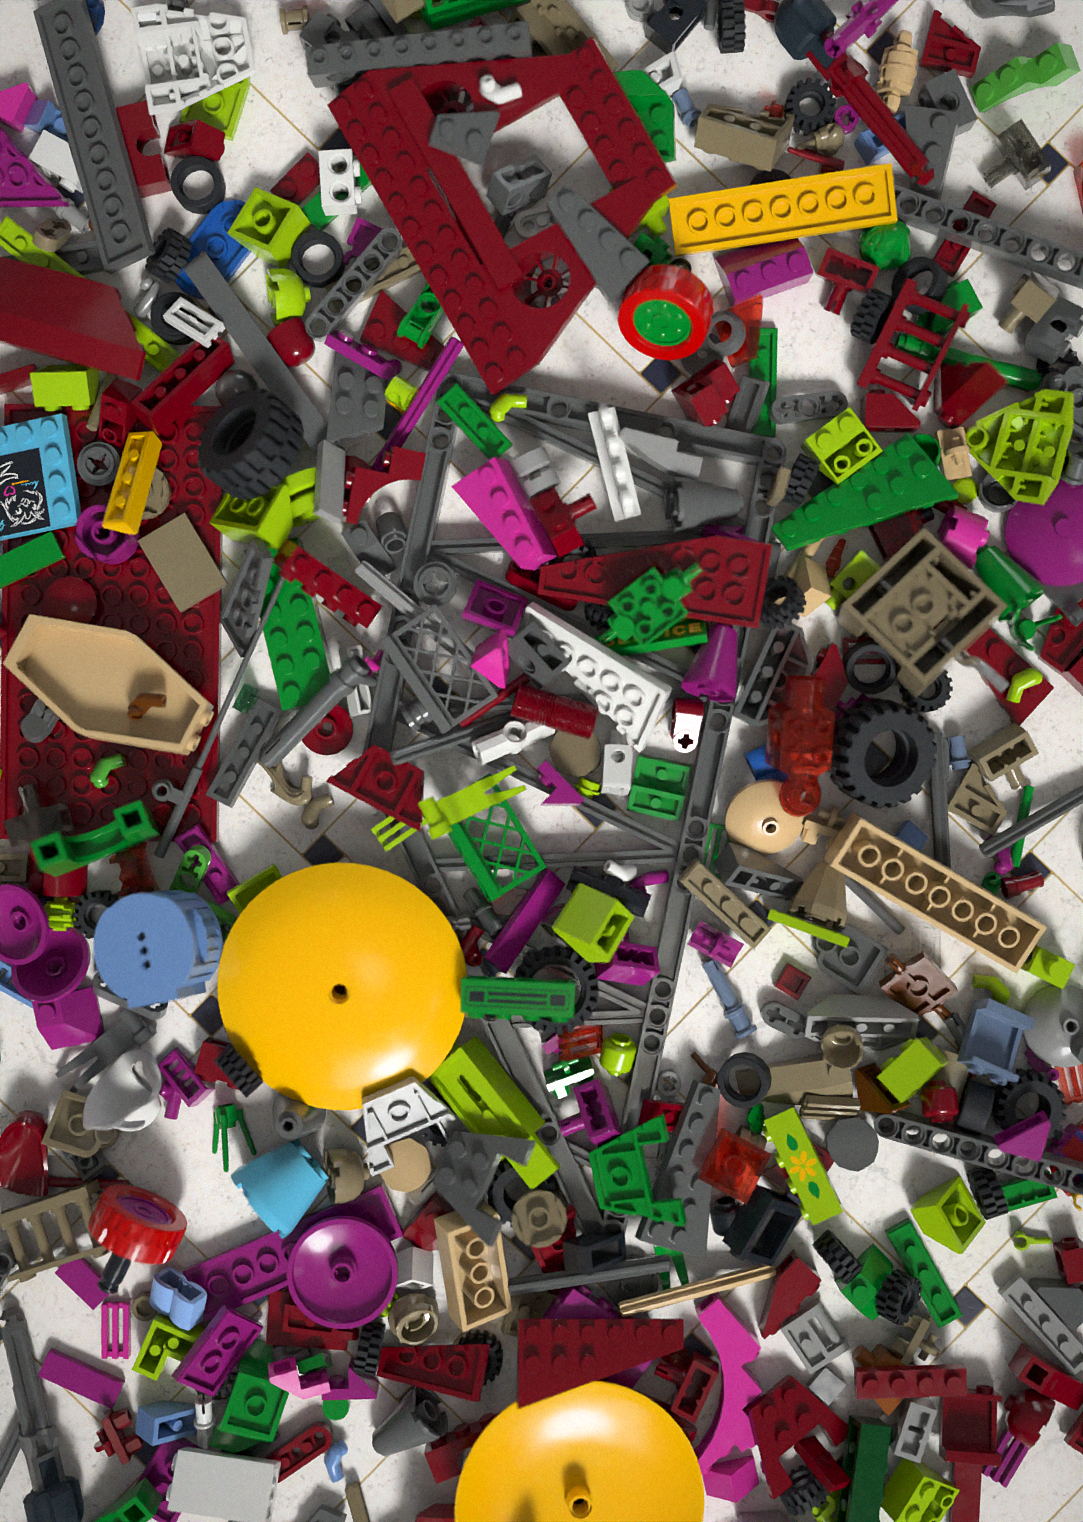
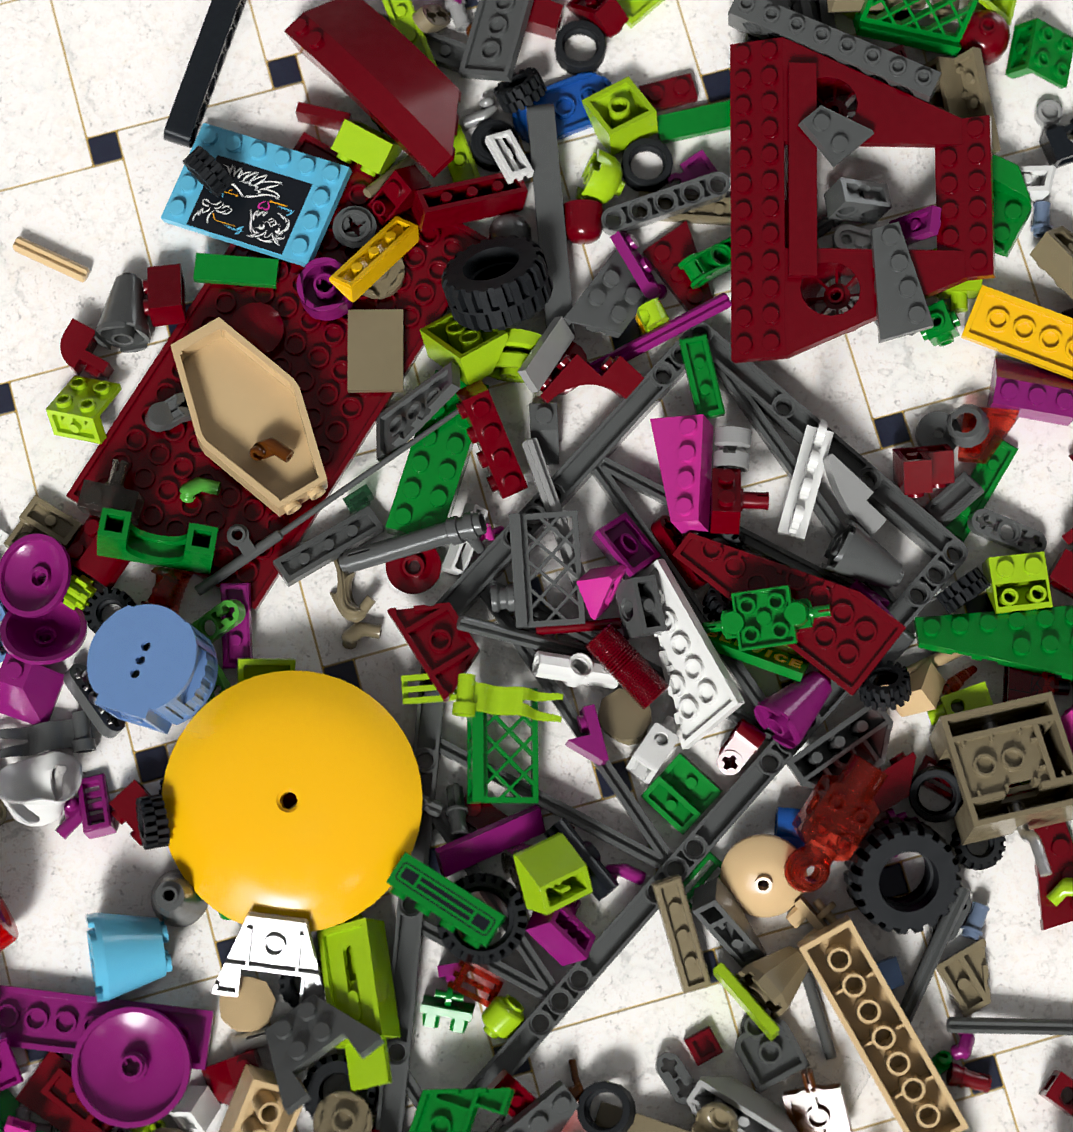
camera: 30 degrees right, 10 degrees down
(226, 1117) = (110, 864): green plant -> none
(334, 183) = (698, 110): white brick -> none
(345, 1174) = (187, 979): dark tan cylinder -> none
(391, 532) = (573, 429): dark grey brick -> none
(443, 573) = (598, 490): dark grey gear -> none
(470, 948) = (426, 835): dark red arm -> none
(499, 94) = (881, 116): white arm -> none
(505, 403) = (737, 375): lime arm -> none
(585, 174) = (920, 224): none -> magenta plate
(587, 787) = (617, 755): lime plate -> none
(595, 1114) = (451, 1057): magenta brick -> none
(625, 872) = (608, 852): white arm -> none
(666, 311) = (925, 377): red wheel -> none
(677, 1083) = (527, 1067): light grey bush -> none
(715, 943) = (651, 966): magenta hips -> none
(733, 1008) = (633, 1038): sand blue pin -> none
(778, 487) = (939, 582): dark tan tile -> none
(1004, 754) = (1016, 946): dark tan brick -> none
(1024, 811) = (1008, 1012): green bar -> none

